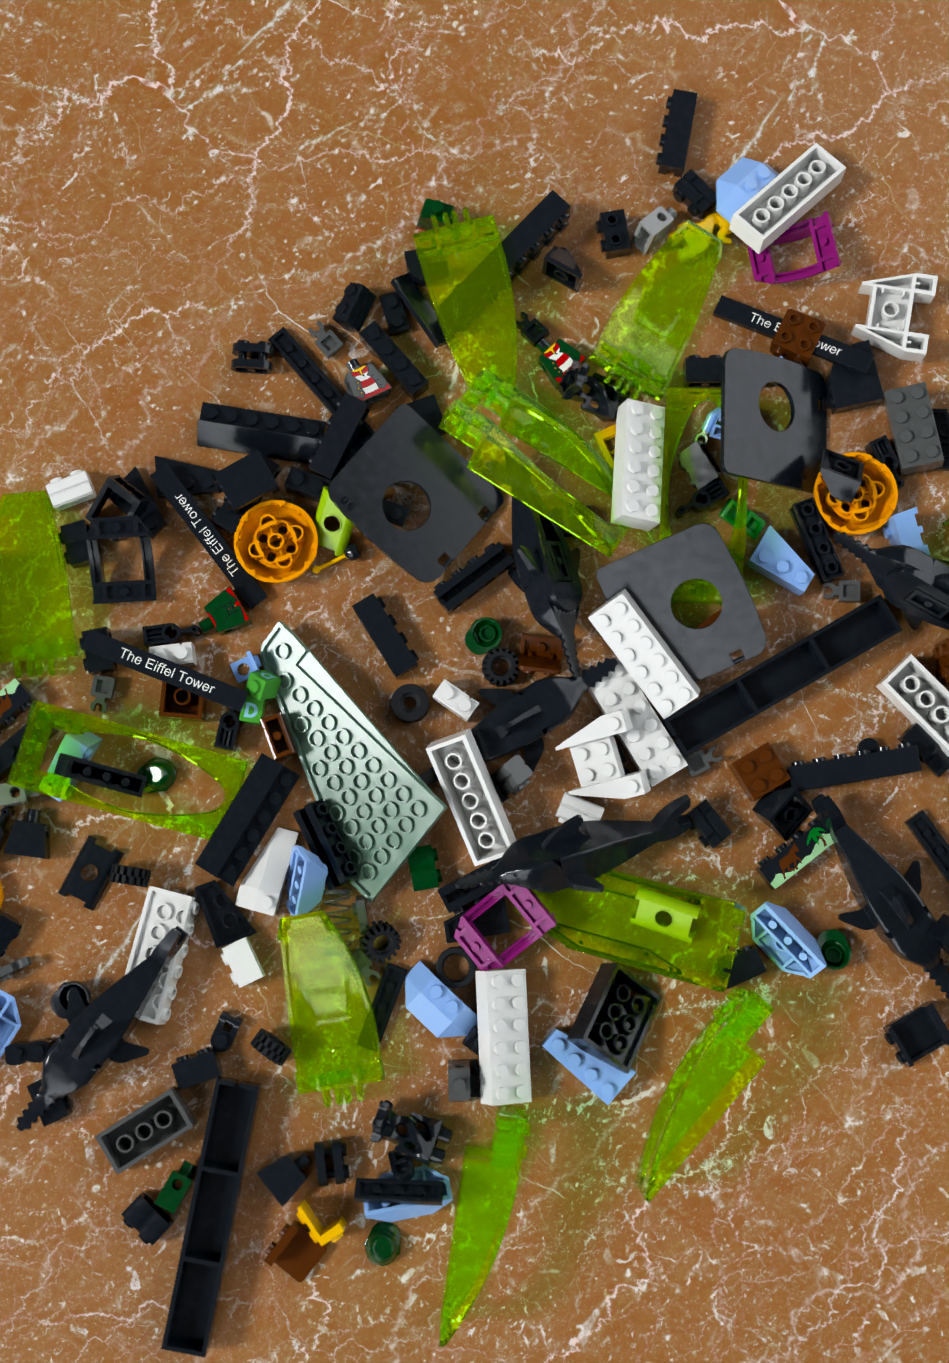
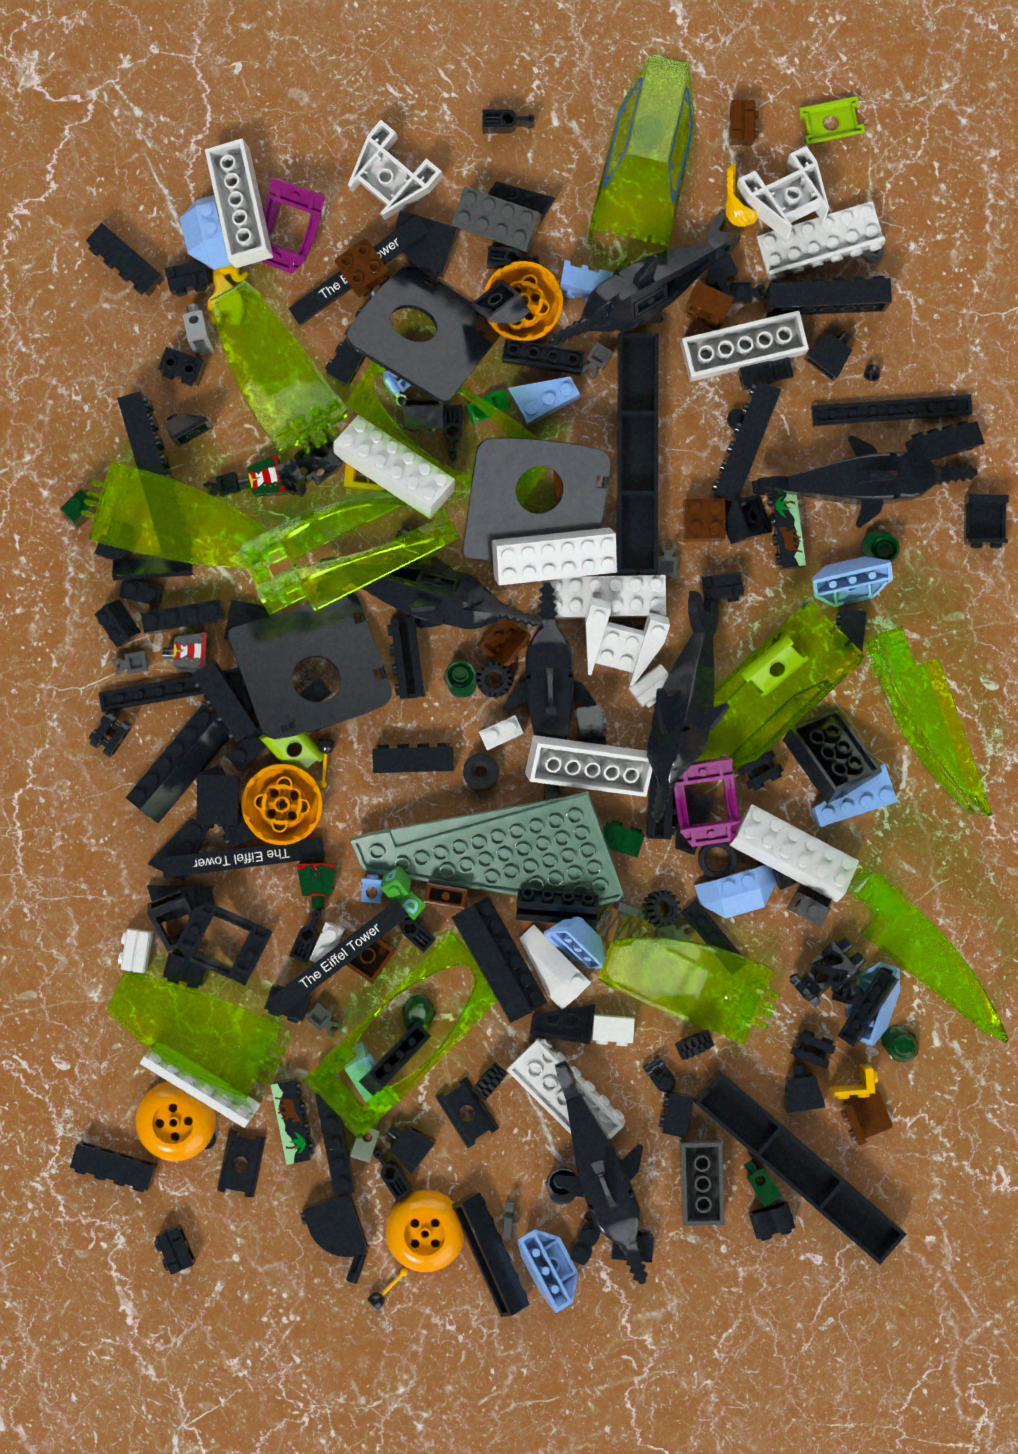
camera: 50 degrees left, 5 degrees up
(565, 972) = (772, 772): none -> black brick

